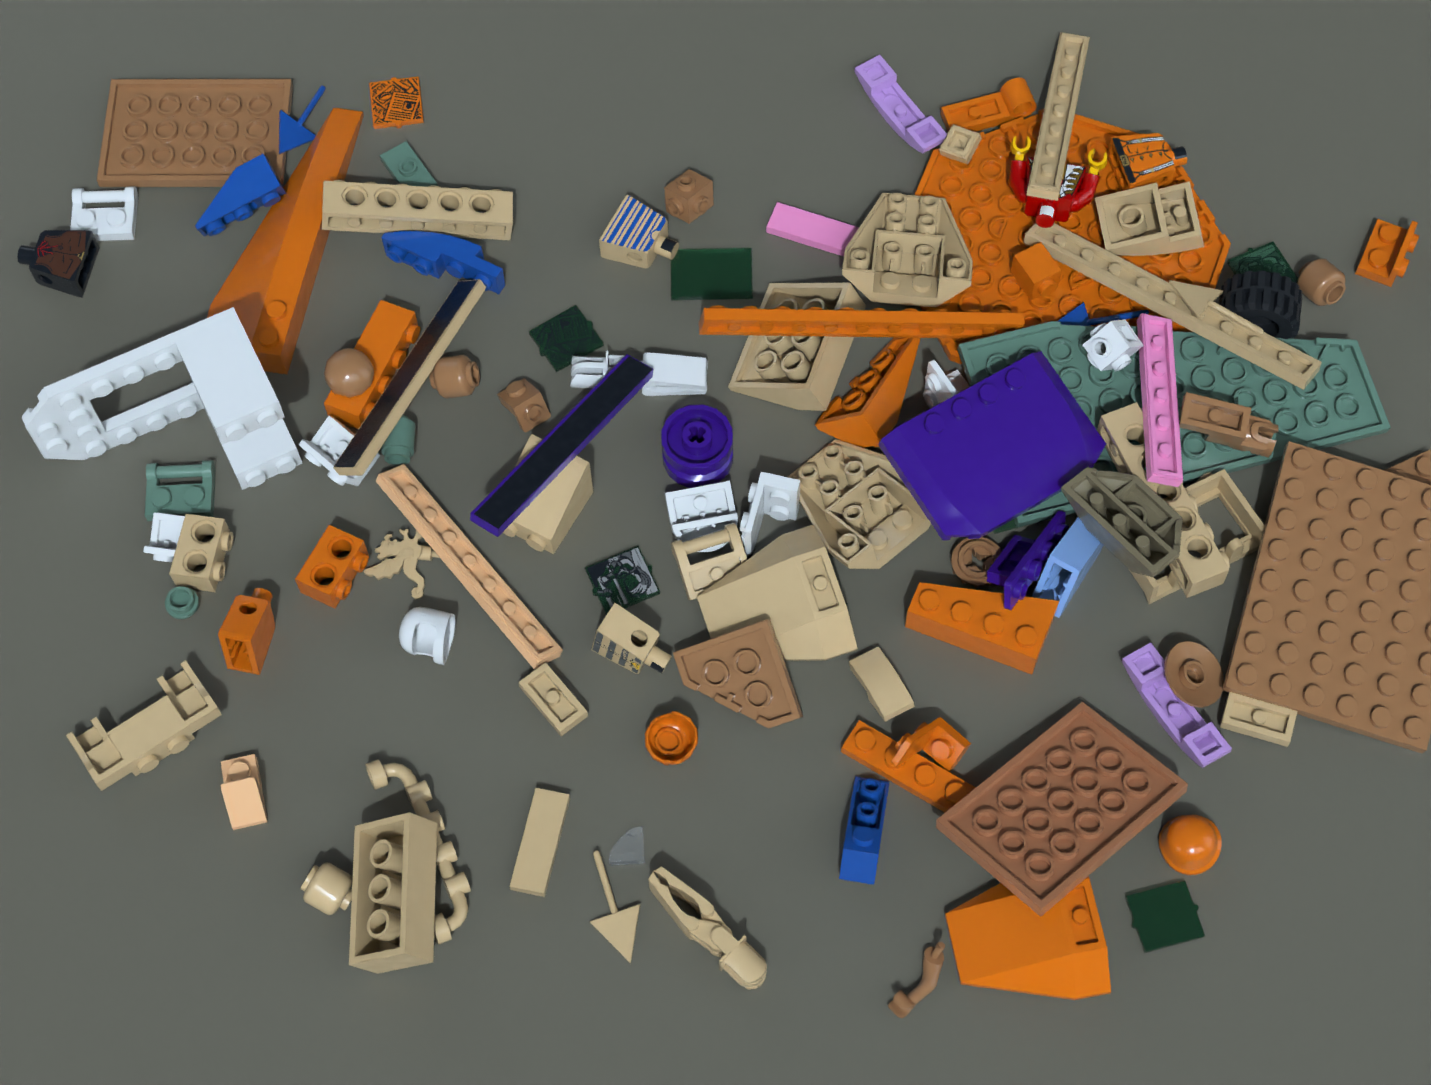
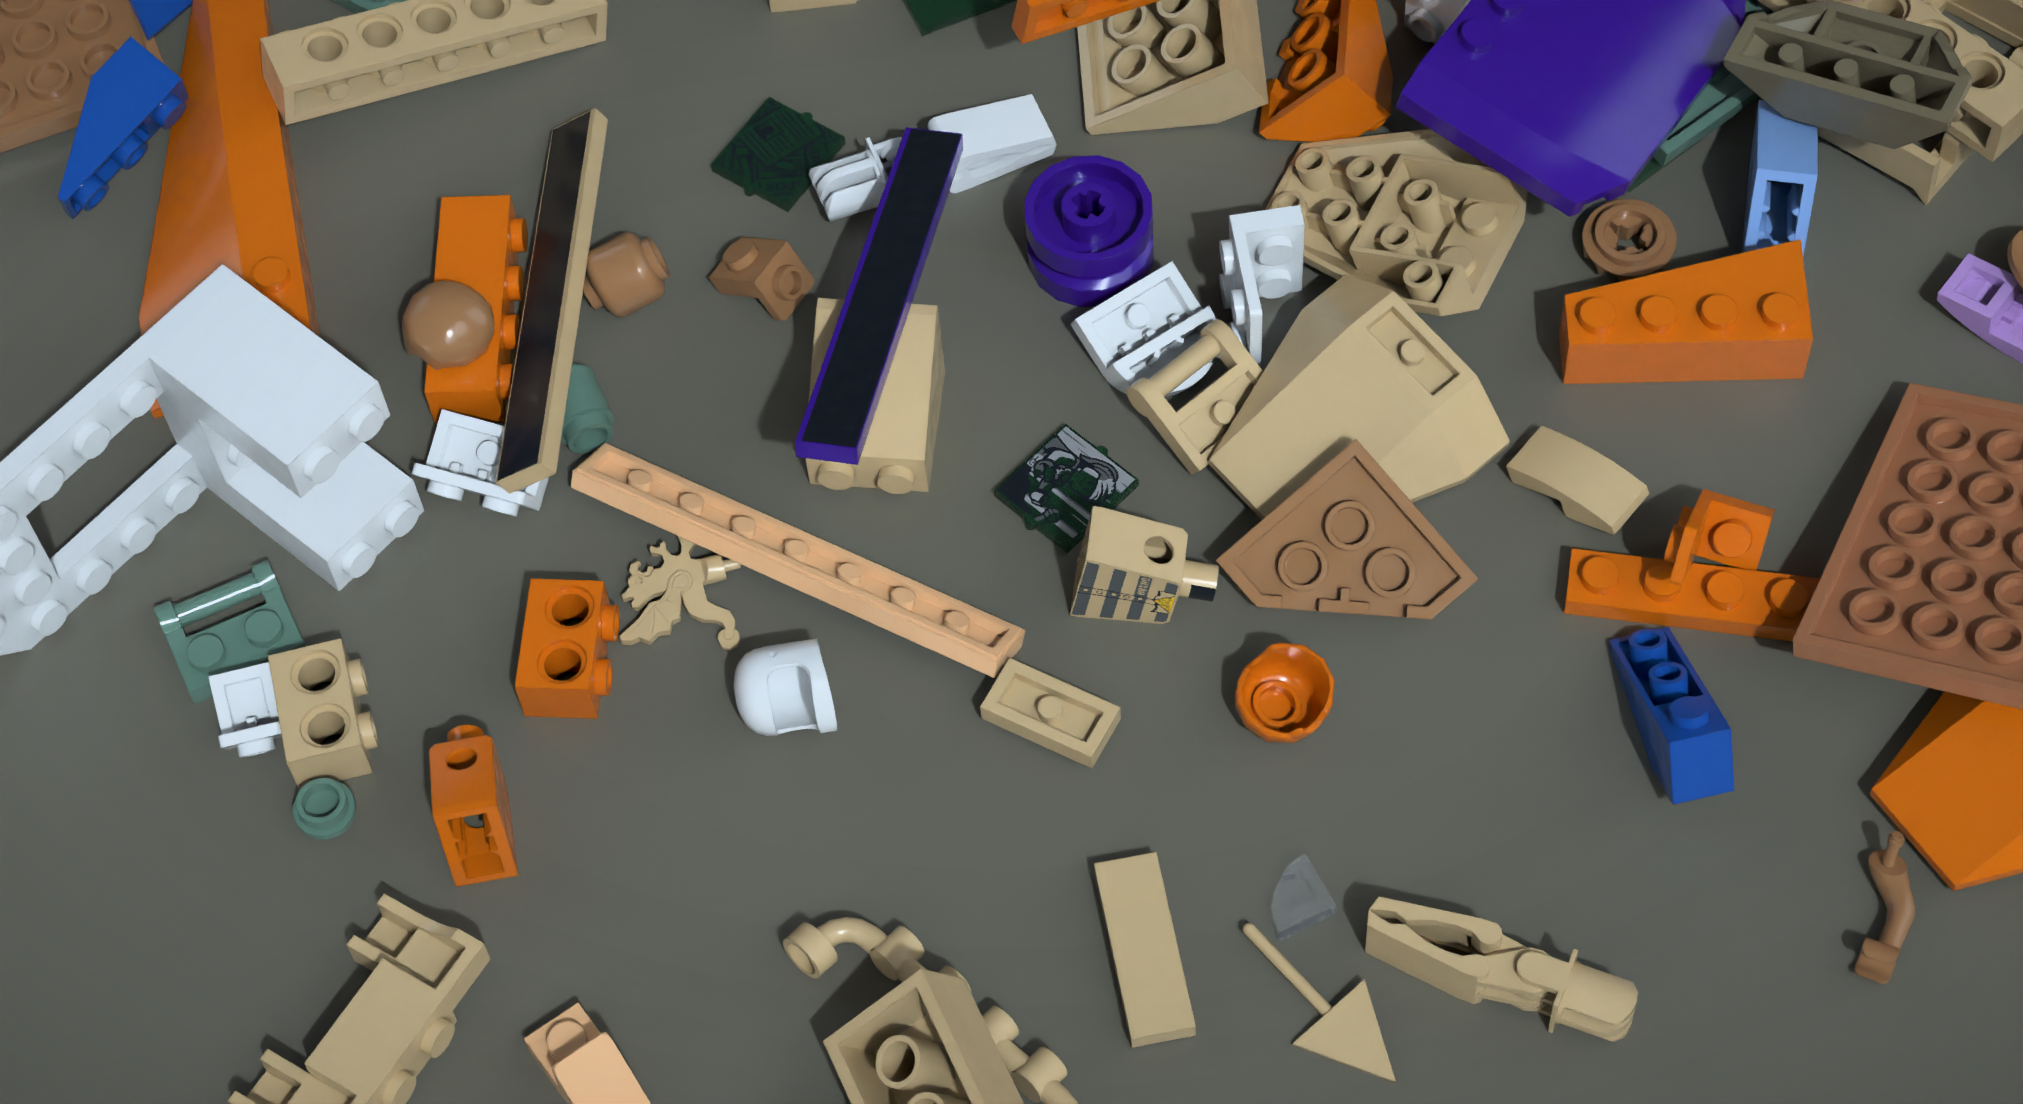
camera: 20 degrees left, 5 degrees down
(437, 252) = (495, 96): blue slope -> none
(1024, 560) = (1711, 207): dark purple bracket -> none

